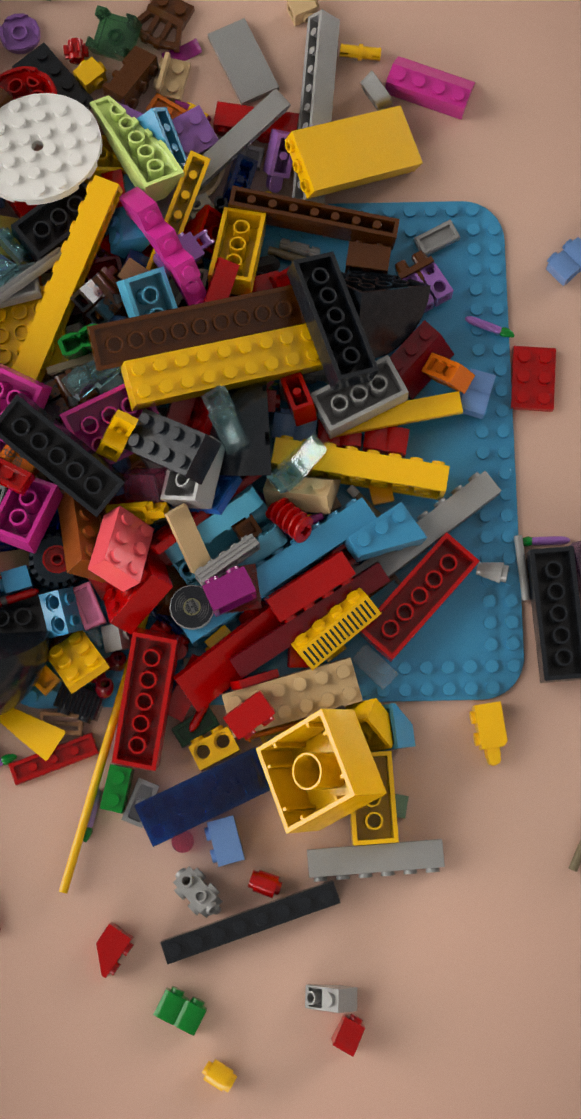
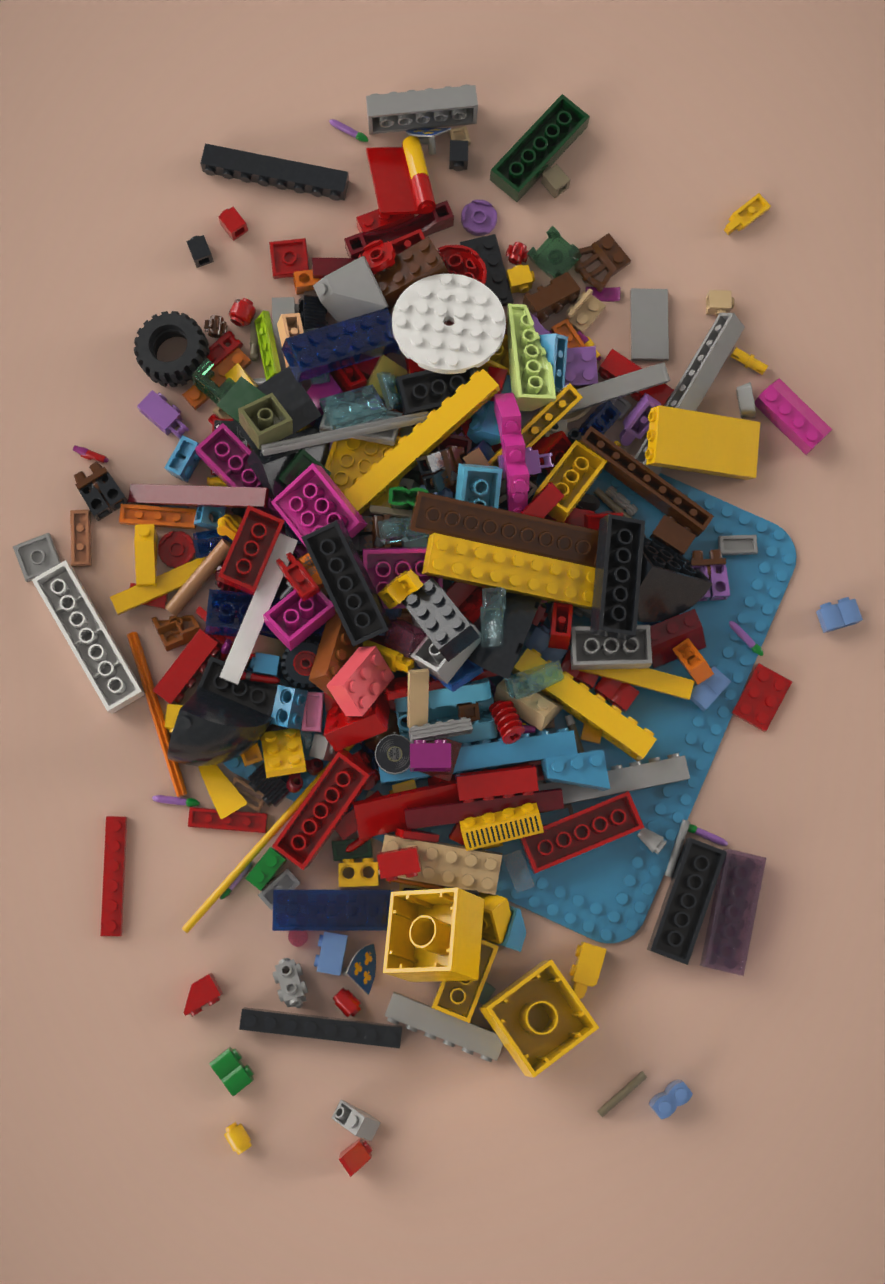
camera: 20 degrees right, 0 degrees up
(264, 841) = (362, 968): none -> blue shield
(466, 802) = (539, 1018): none -> yellow brick

